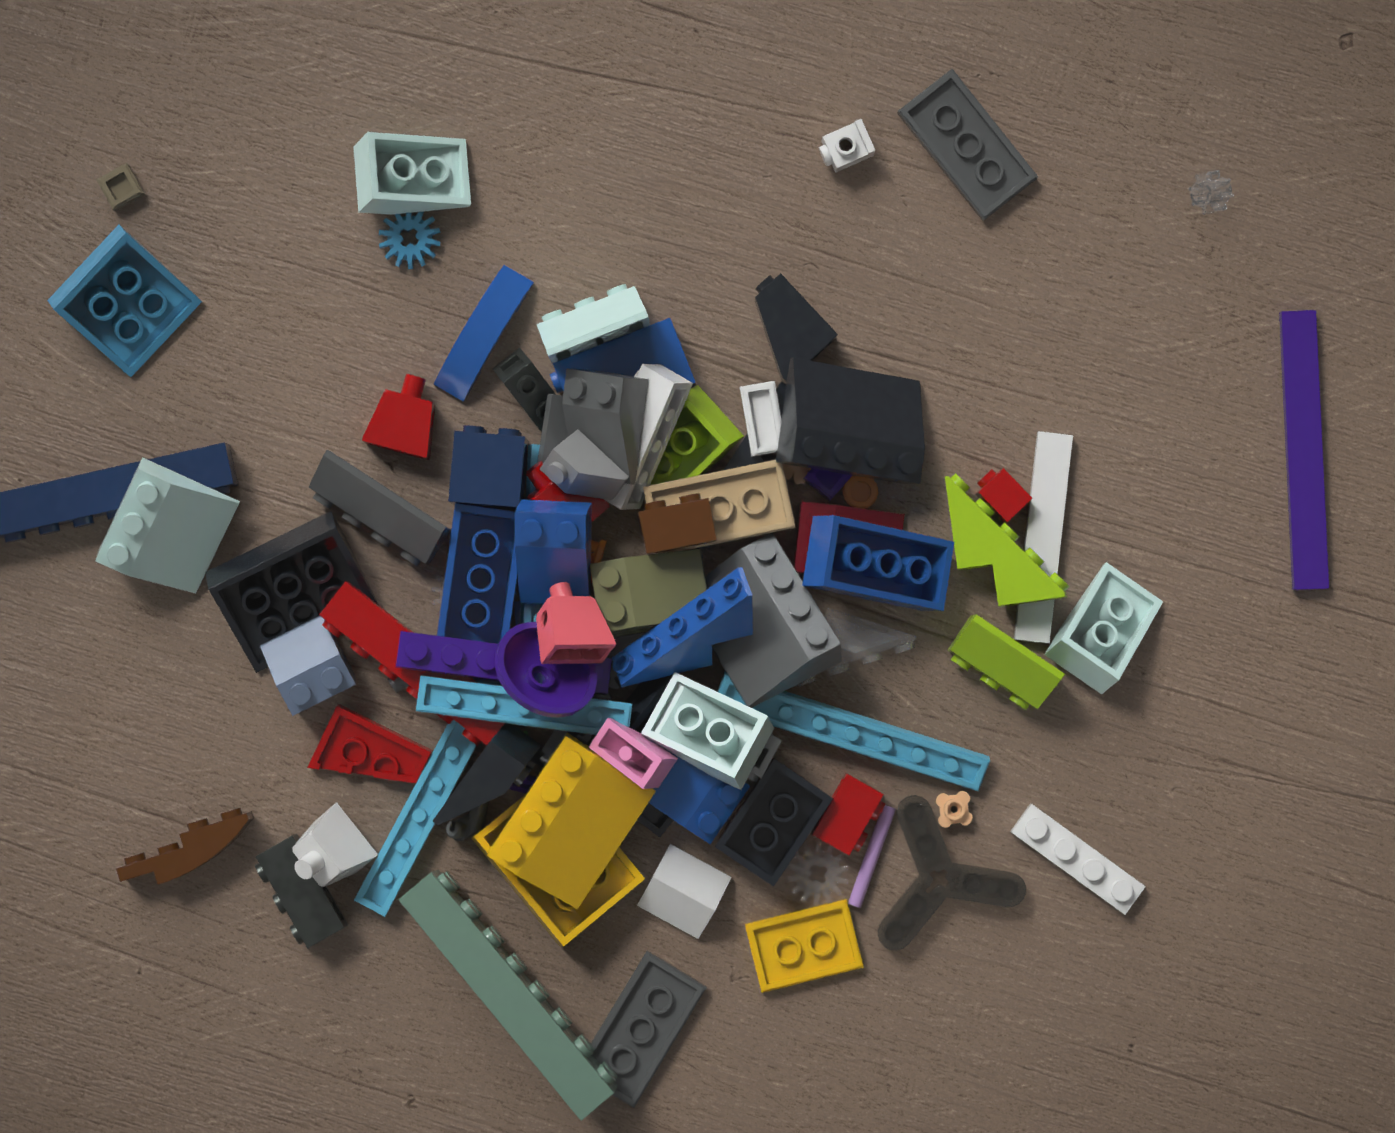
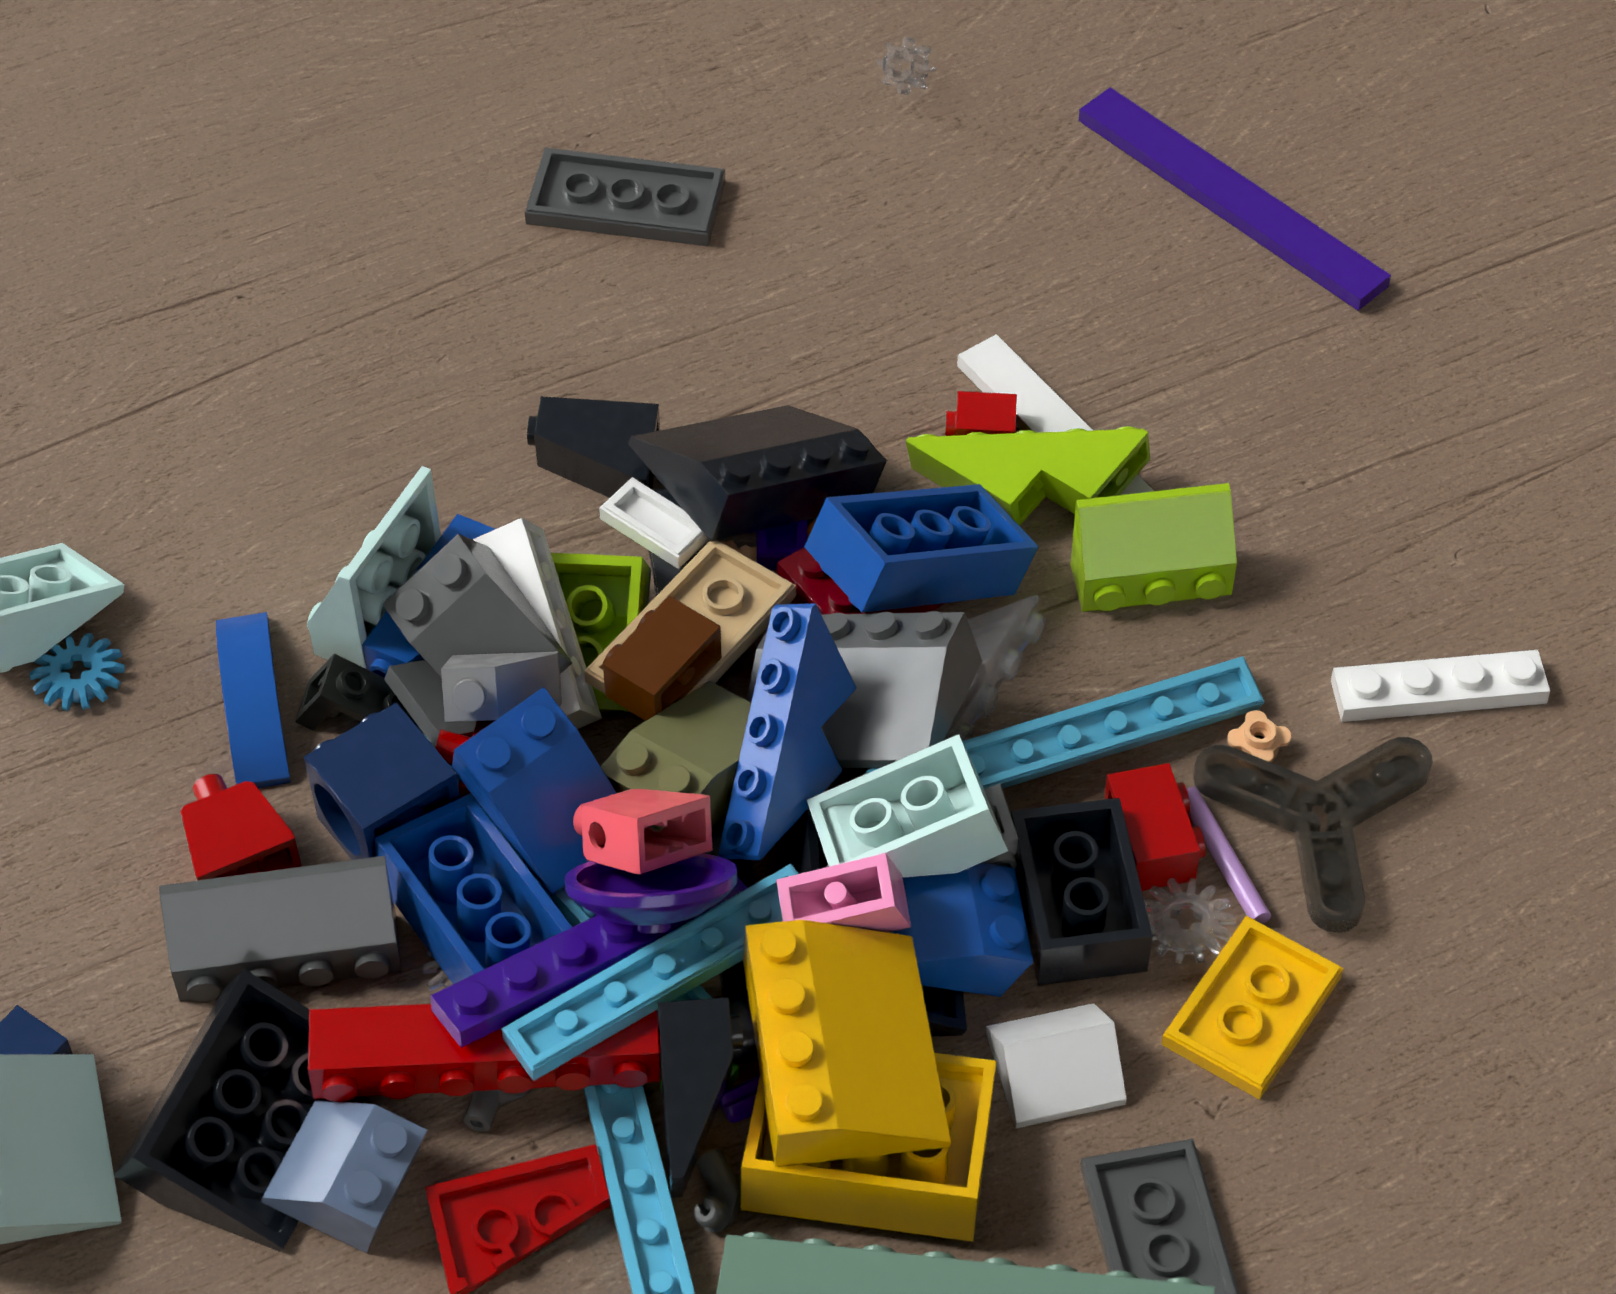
camera: 45 degrees left, 35 degrees down
(861, 146) = (502, 267): white brick -> none
(1104, 629) = (1223, 448): light aqua slope -> none

